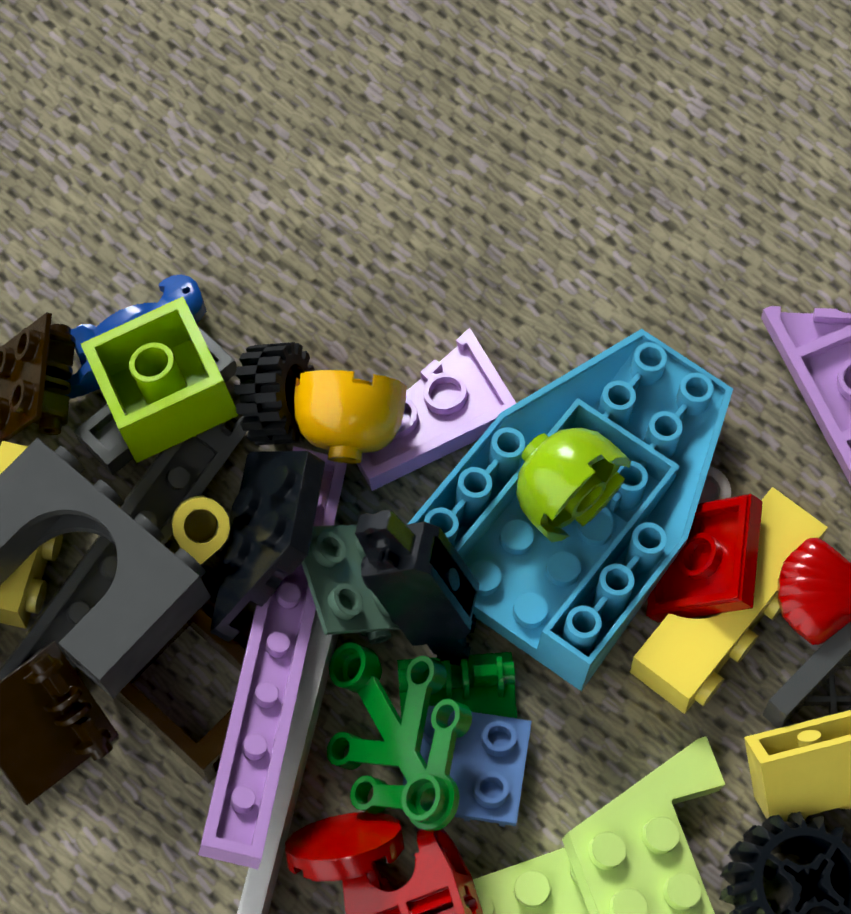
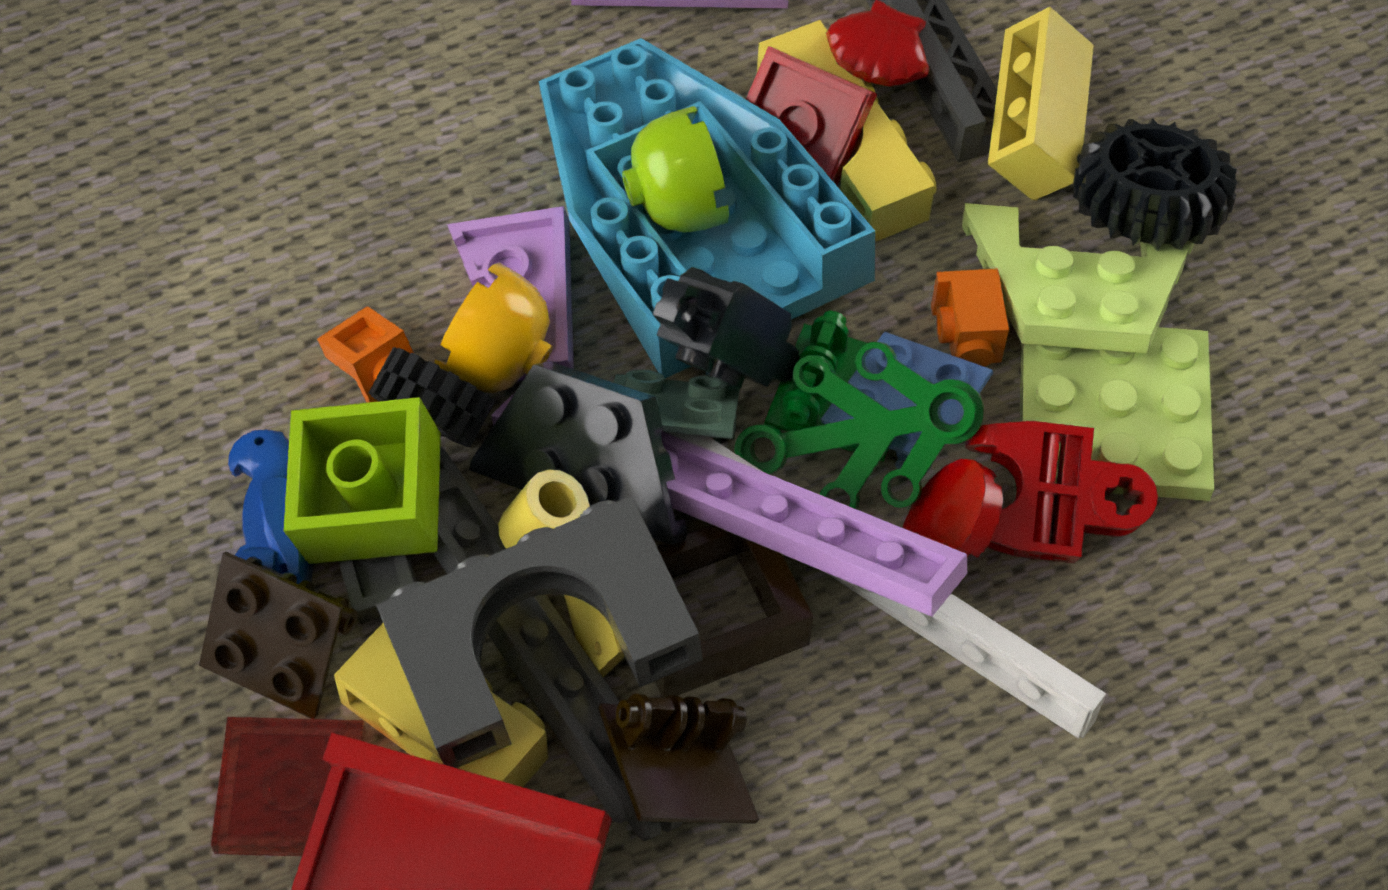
camera: 70 degrees left, 10 degrees down
(317, 324) = (362, 346): none -> orange bracket
(575, 788) = (971, 314): none -> orange brick

